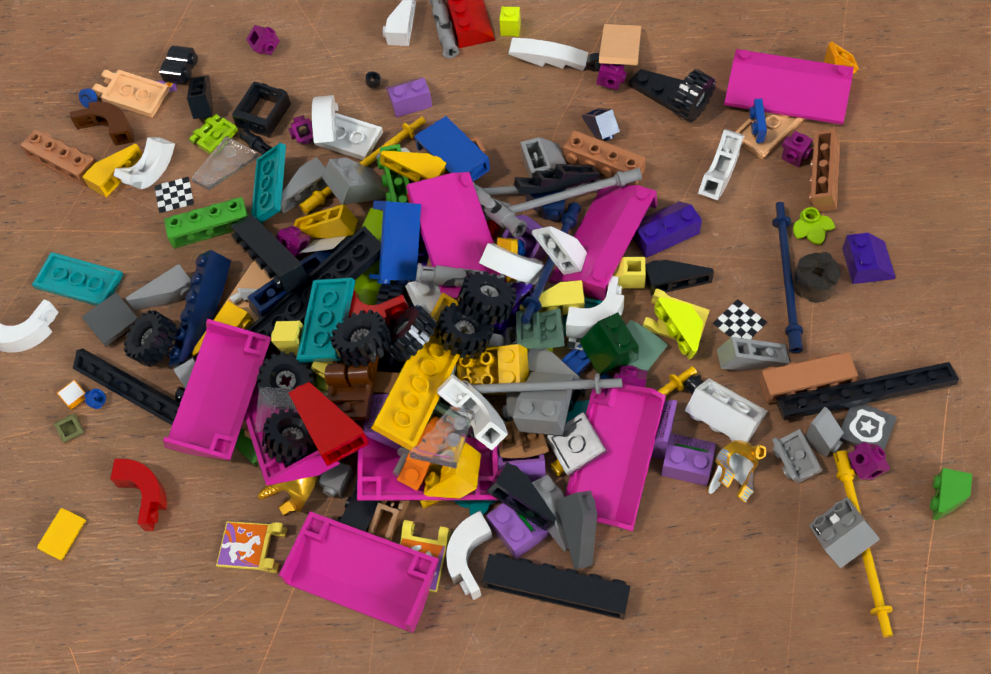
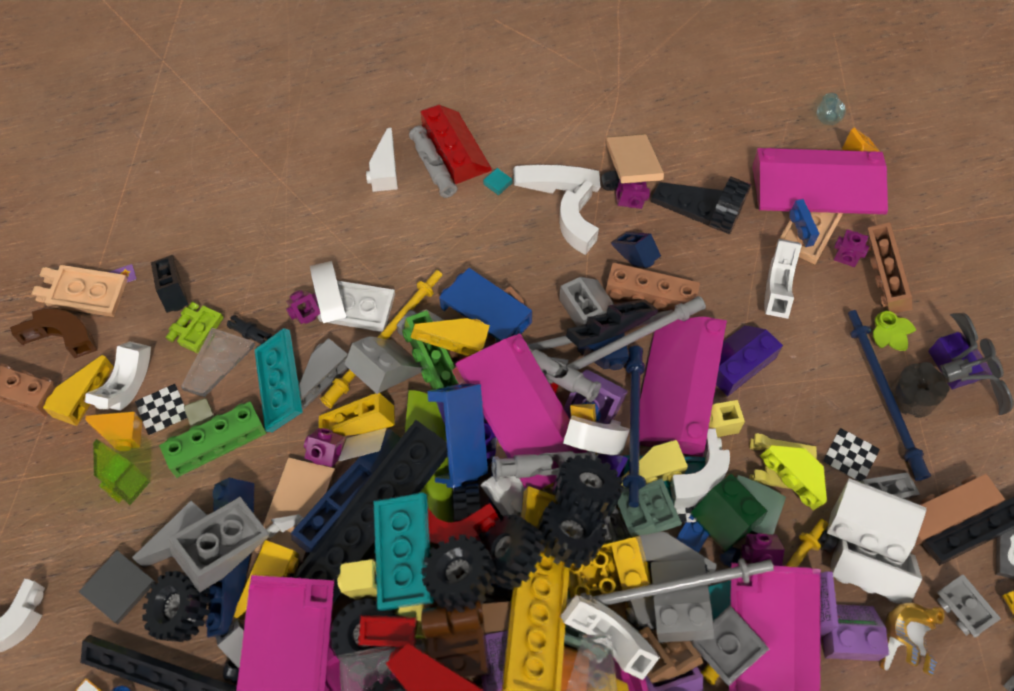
camera: 20 degrees left, 0 degrees up
(77, 279) = (61, 540): teal tile -> none
(87, 95) = (27, 304): blue tile -> none
(127, 235) = (117, 474): none -> clear neon green slope
(137, 203) = (118, 429): none -> light orange slope
(178, 64) = (133, 248): black brick -> none
(188, 294) = (217, 543): none -> light grey slope
(201, 199) = (199, 412): none -> olive slope
(256, 124) = (243, 307): black window -> none
(263, 40) = (229, 205): magenta brick -> none
(269, 254) = (304, 471): black brick -> none
(296, 375) = (387, 631): none -> red tile
(372, 75) = (372, 234): black hinge -> none
(409, 96) = (415, 247): medium lavender slope -> none
(496, 50) = (497, 181): none -> teal tile
(510, 21) = (505, 147): neon yellow brick -> none
(553, 101) = (574, 228): none -> white arch
(562, 249) = (647, 408): white slope -> none
(674, 275) = (768, 413): black slope -> none
(732, 370) = (876, 520): none -> white slope
(822, 24) = (831, 109): none -> clear light blue piece
(824, 433) = (989, 574): light grey slope -> none
(853, 261) = (960, 368): none -> dark grey plant

